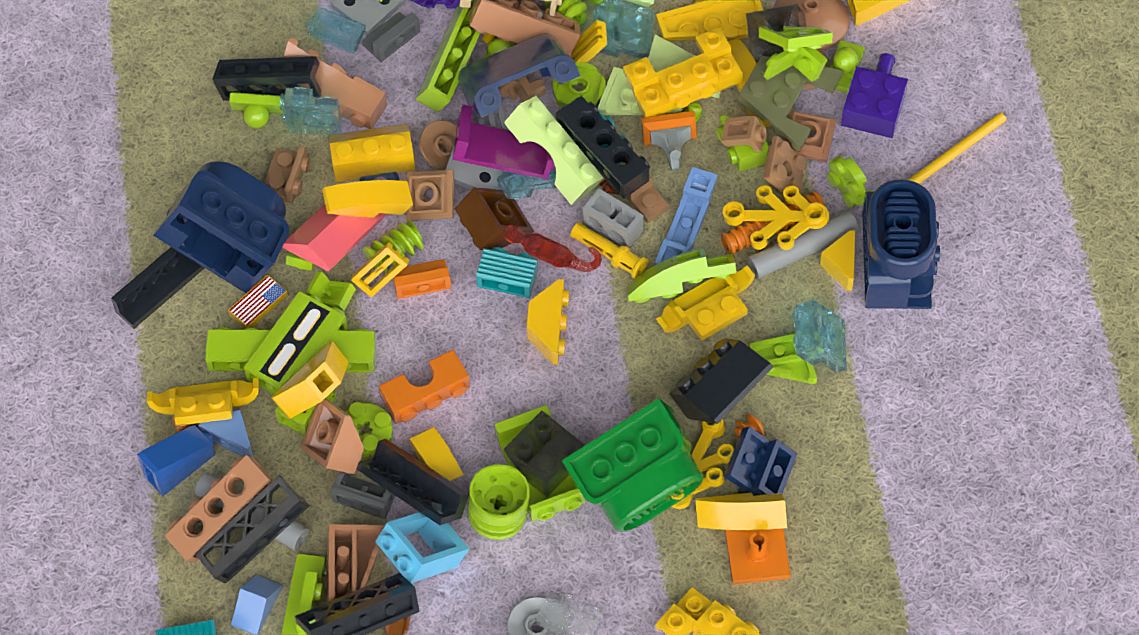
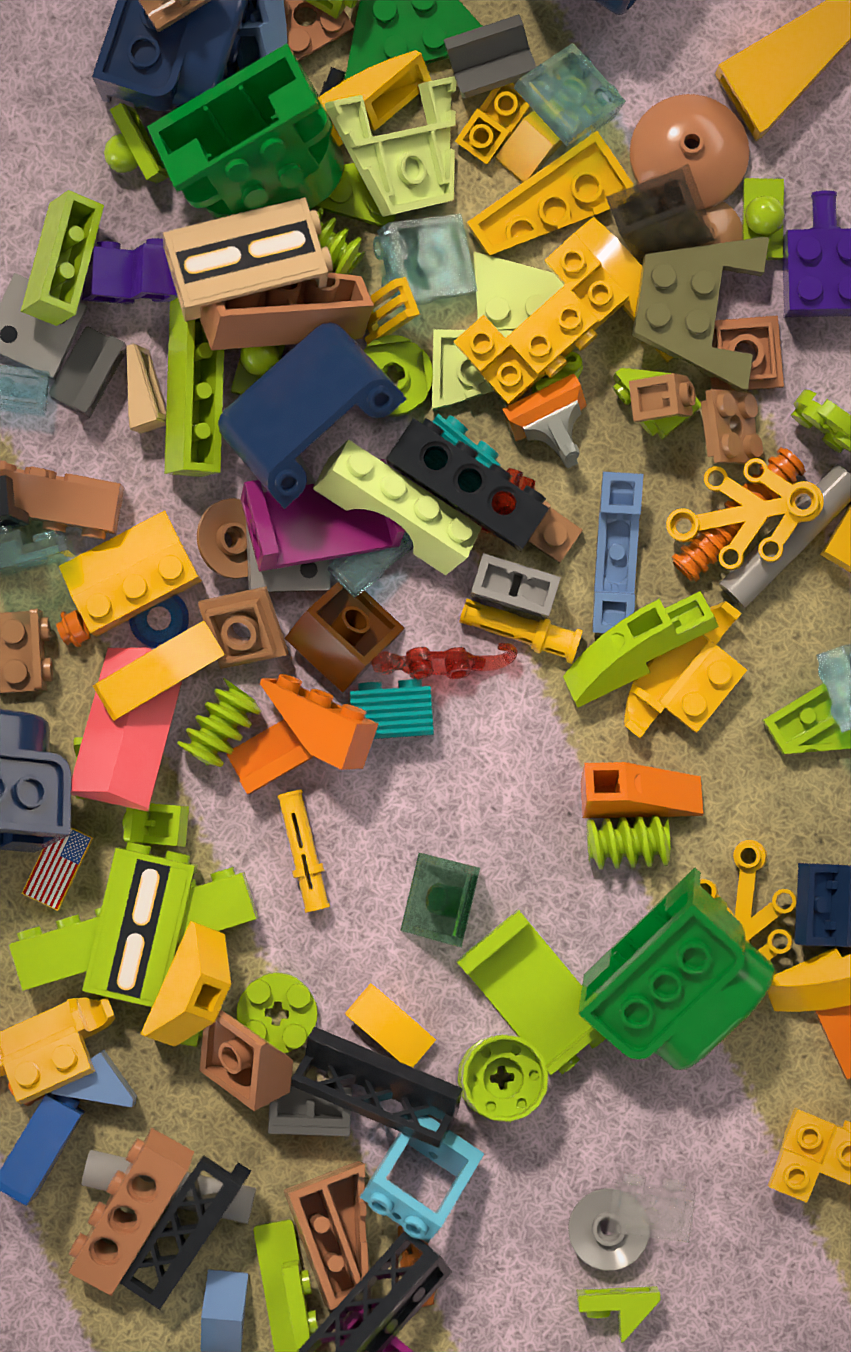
camera: 20 degrees left, 25 degrees up
(323, 170) = (73, 628): none -> orange plate
(393, 255) = (209, 772): yellow tile -> none
(406, 400) = (316, 956): orange arch -> none
(418, 347) = (315, 898): none -> yellow pin
(419, 53) = (145, 397): none -> tan slope
(465, 263) = (324, 728): none -> orange slope
(500, 391) = (440, 899): none -> clear green slope
(540, 452) = (539, 982): clear smoke slope -> none
(547, 321) = (474, 772): yellow slope -> none
(632, 389) = (628, 841): none -> lime piece
(647, 359) = (638, 790): none -> orange slope
(719, 381) = (747, 800): black slope -> none
(751, 421) = (802, 848): orange wheel -> none
(796, 37) = (698, 229): lime wing -> none
(806, 60) = (712, 245): lime bracket -> none

